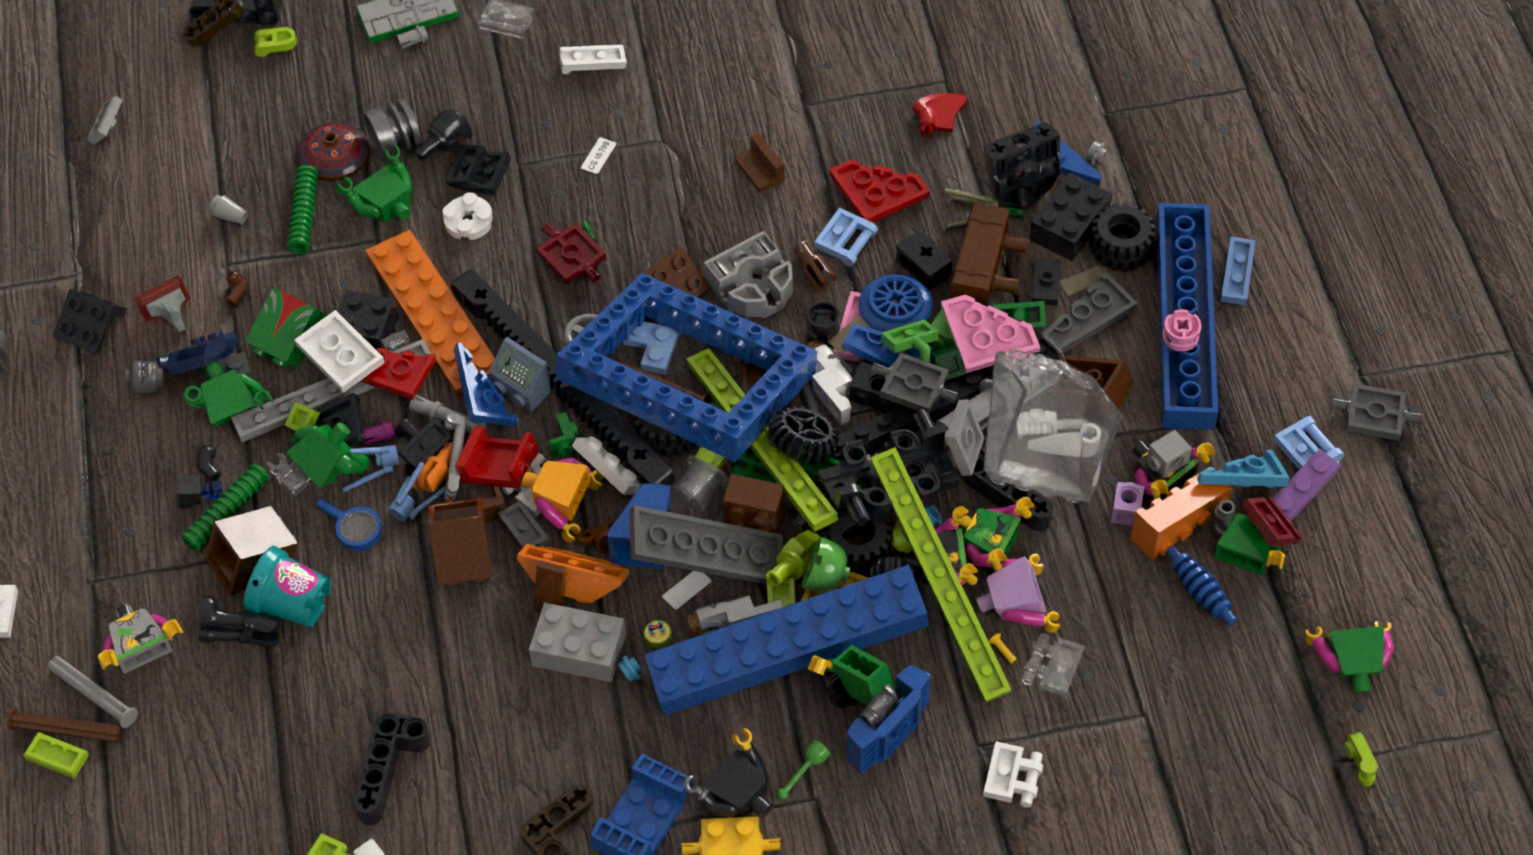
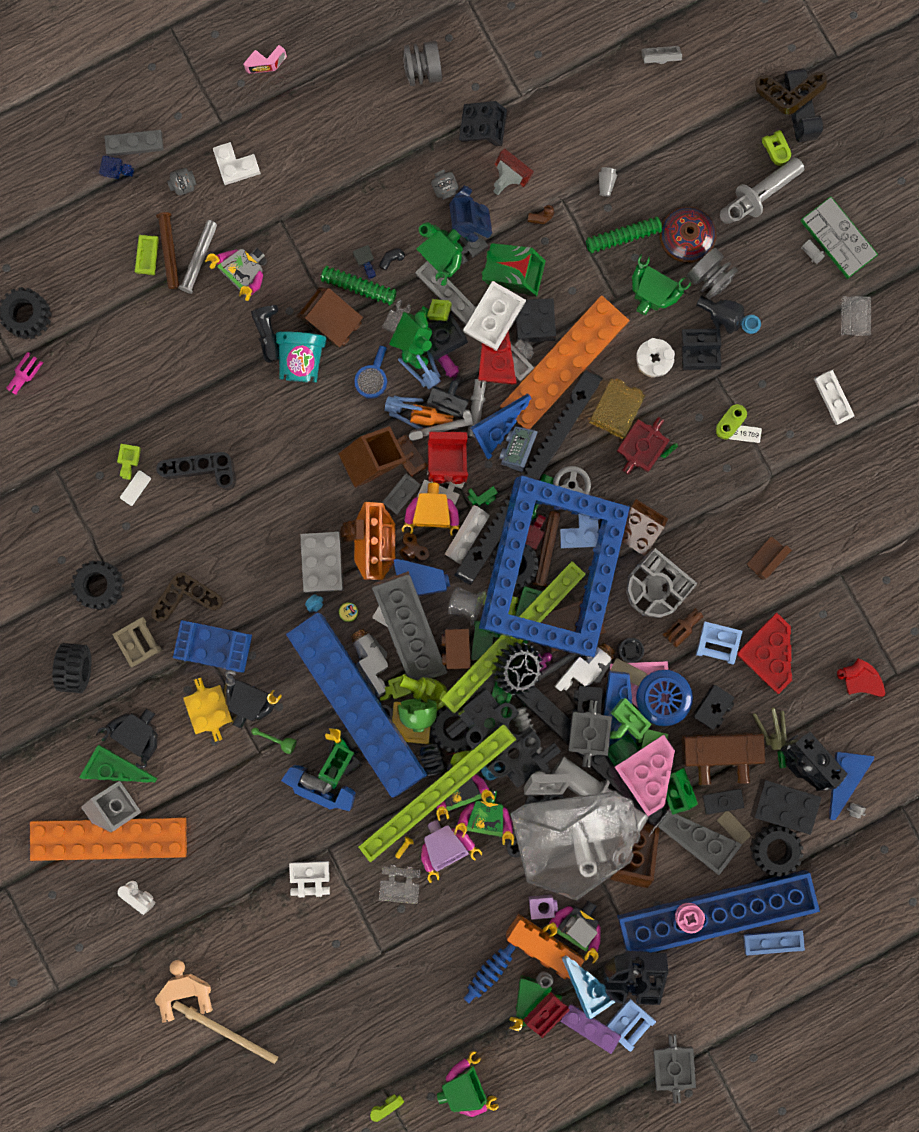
camera: 70 degrees right, 30 degrees up
(322, 73) = (750, 199): none -> light grey piece
(472, 113) = (751, 324): none -> dark azure plate
(515, 265) = (617, 408): none -> clear yellow panel
(575, 158) = (731, 421): none -> lime plate
(1245, 411) = (621, 972): none -> black connector

